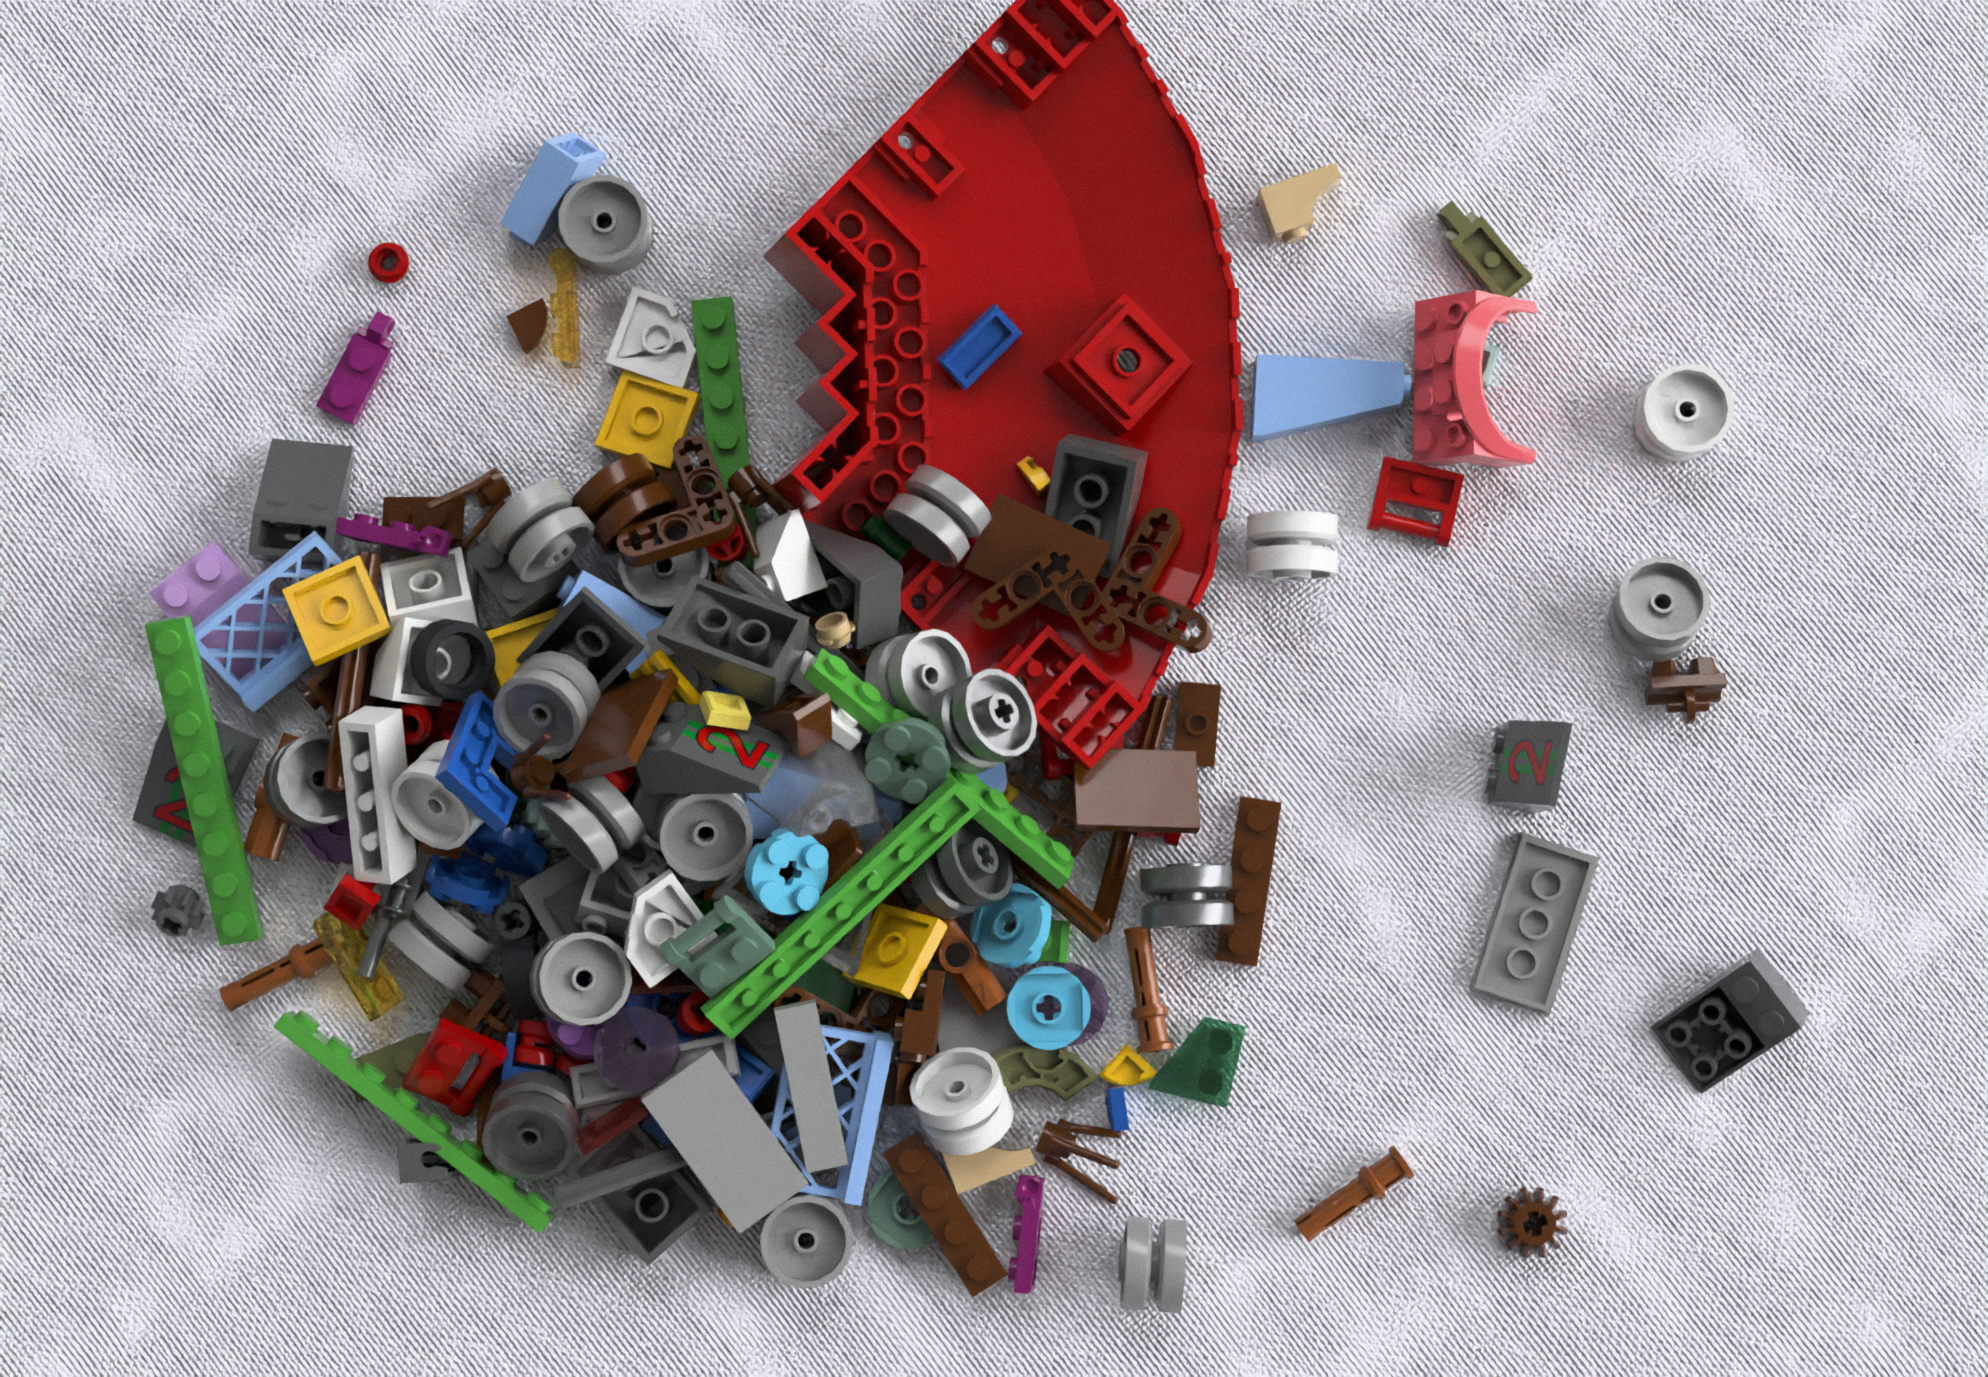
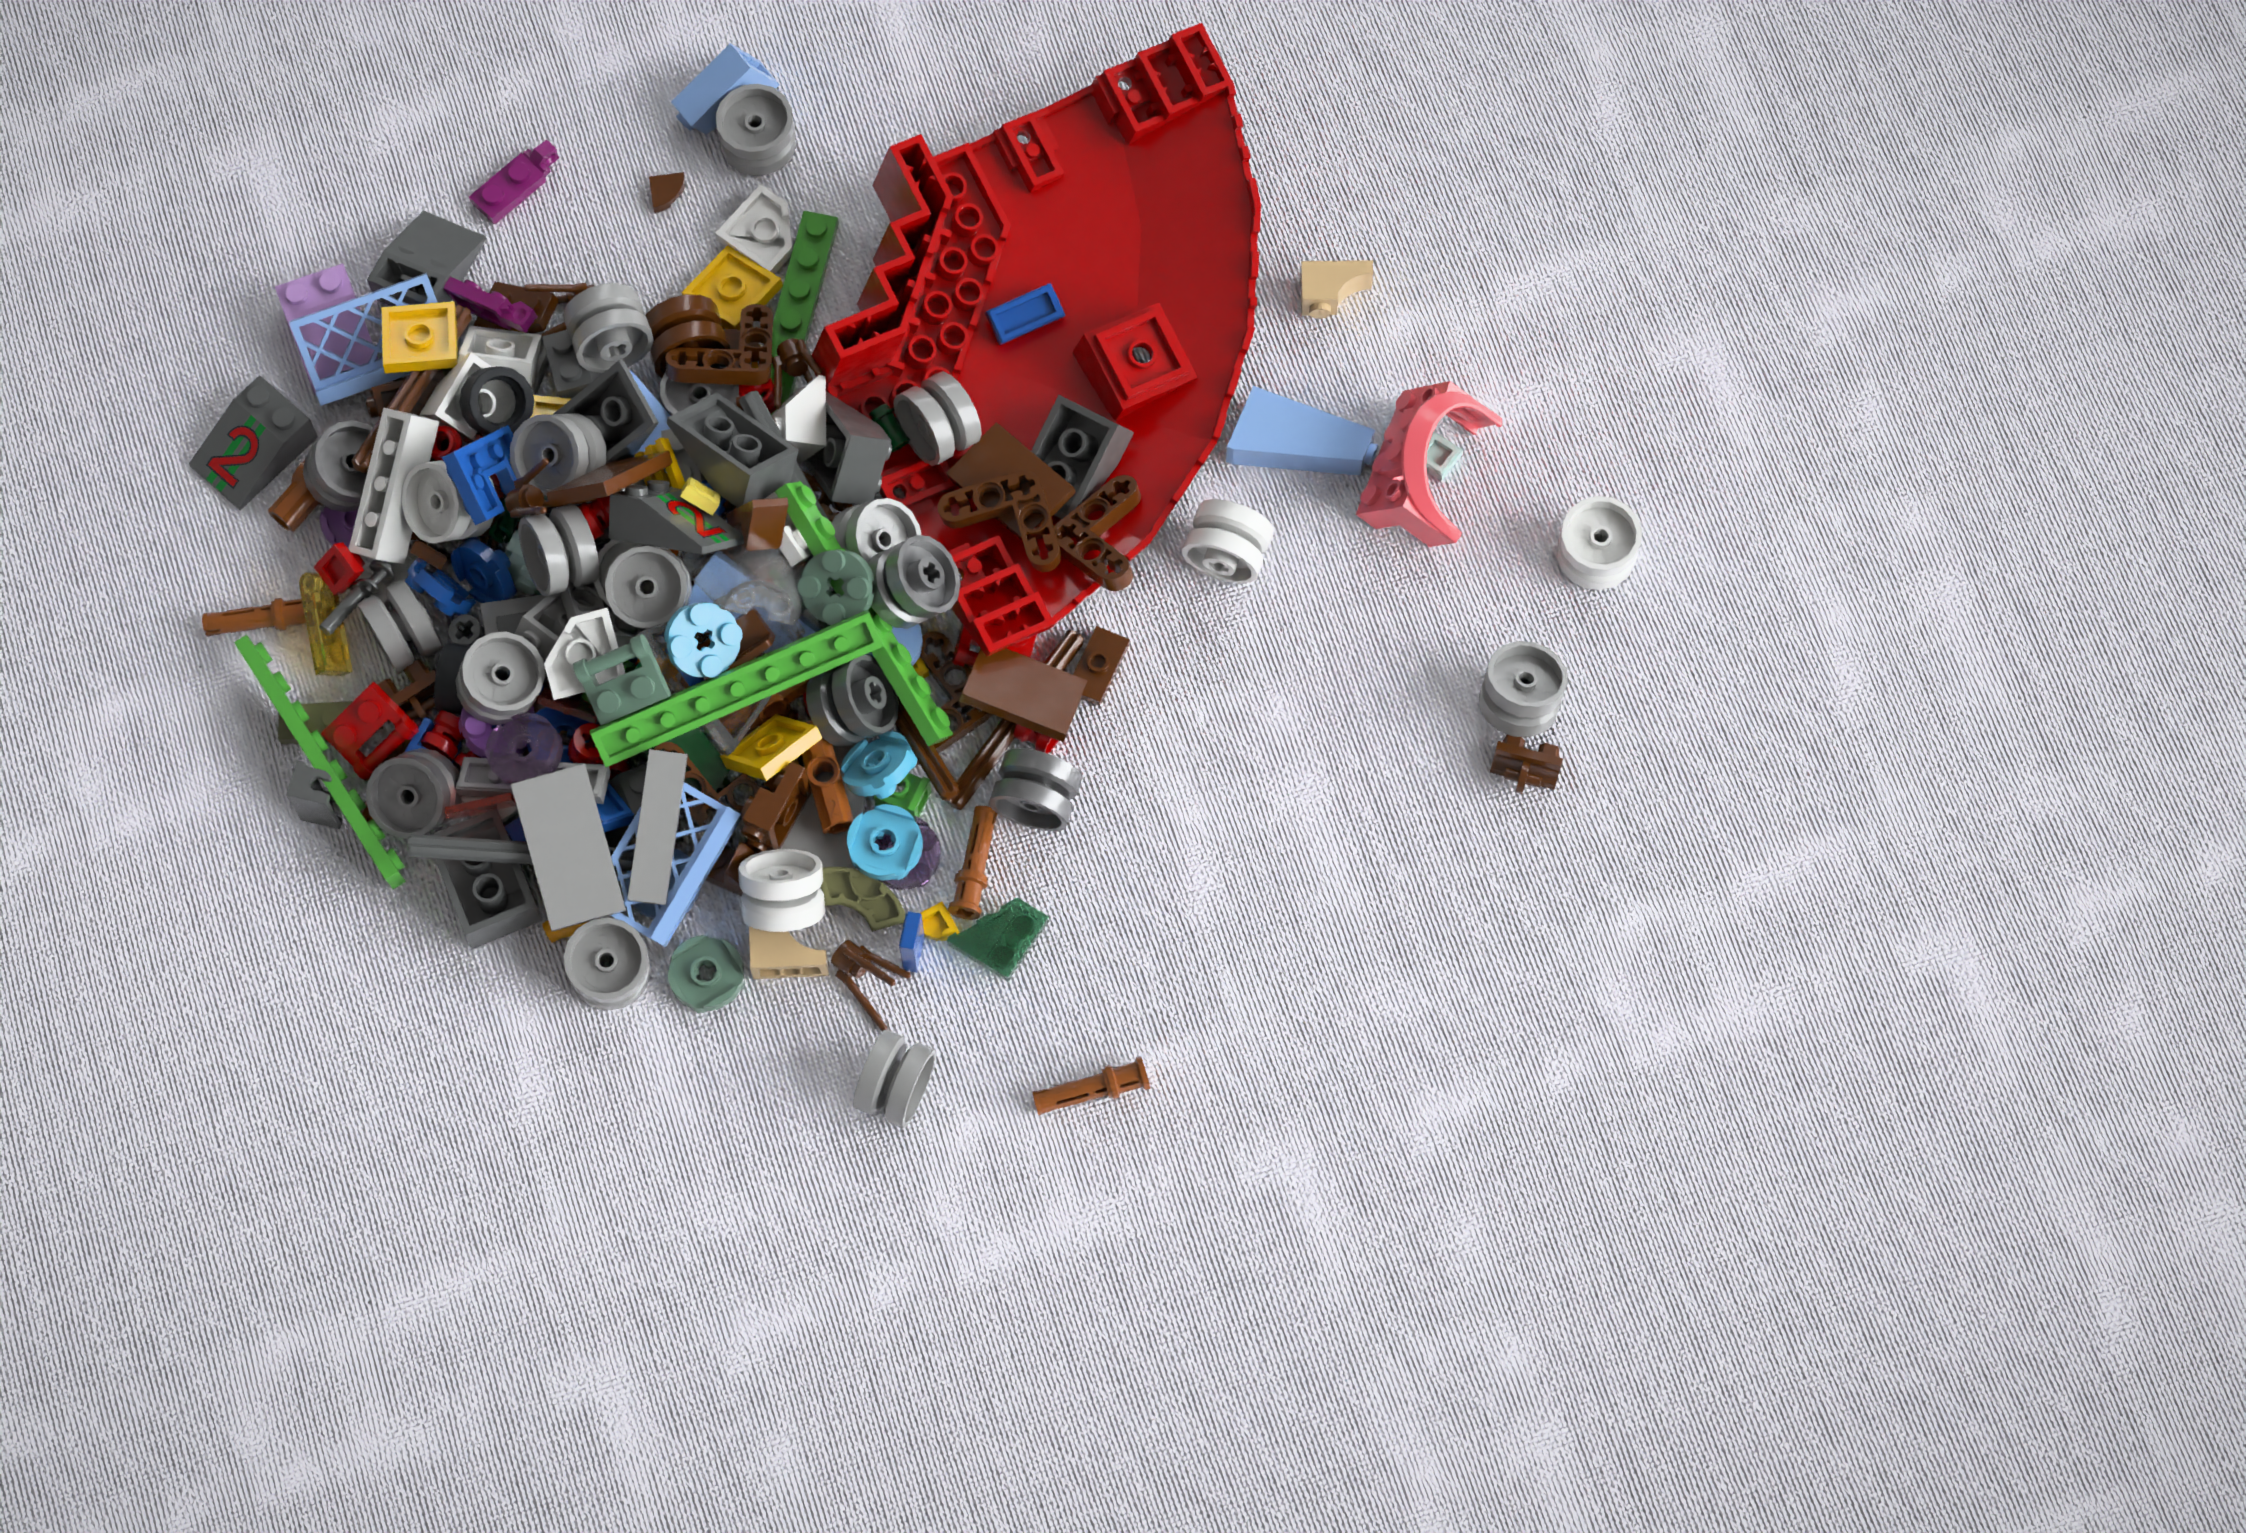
camera: 20 degrees right, 15 degrees down
(177, 910) = (195, 540): dark grey gear -> none
(204, 779) = (259, 440): bright green plate -> none
(380, 254) = (571, 101): red plate -> none
(566, 307) = (699, 185): clear yellow plate -> none
(834, 630) = (817, 476): tan plate -> none
(945, 1214) = (733, 983): reddish brown plate -> none
(1027, 1231) = (798, 1028): magenta hinge -> none
(1034, 476) = (1033, 424): yellow tile -> none
(1251, 874) = (1095, 805): reddish brown plate -> none
(1418, 488) = (1352, 536): red plate -> none
(1483, 251) = (1474, 369): olive hinge -> none
(1519, 1215) = (1253, 1158): reddish brown gear -> none
(1528, 765) = (1366, 777): dark grey slope -> none
(1534, 923) = (1329, 918): light grey tile -> none
(1731, 1021) = (1473, 1048): dark grey slope -> none

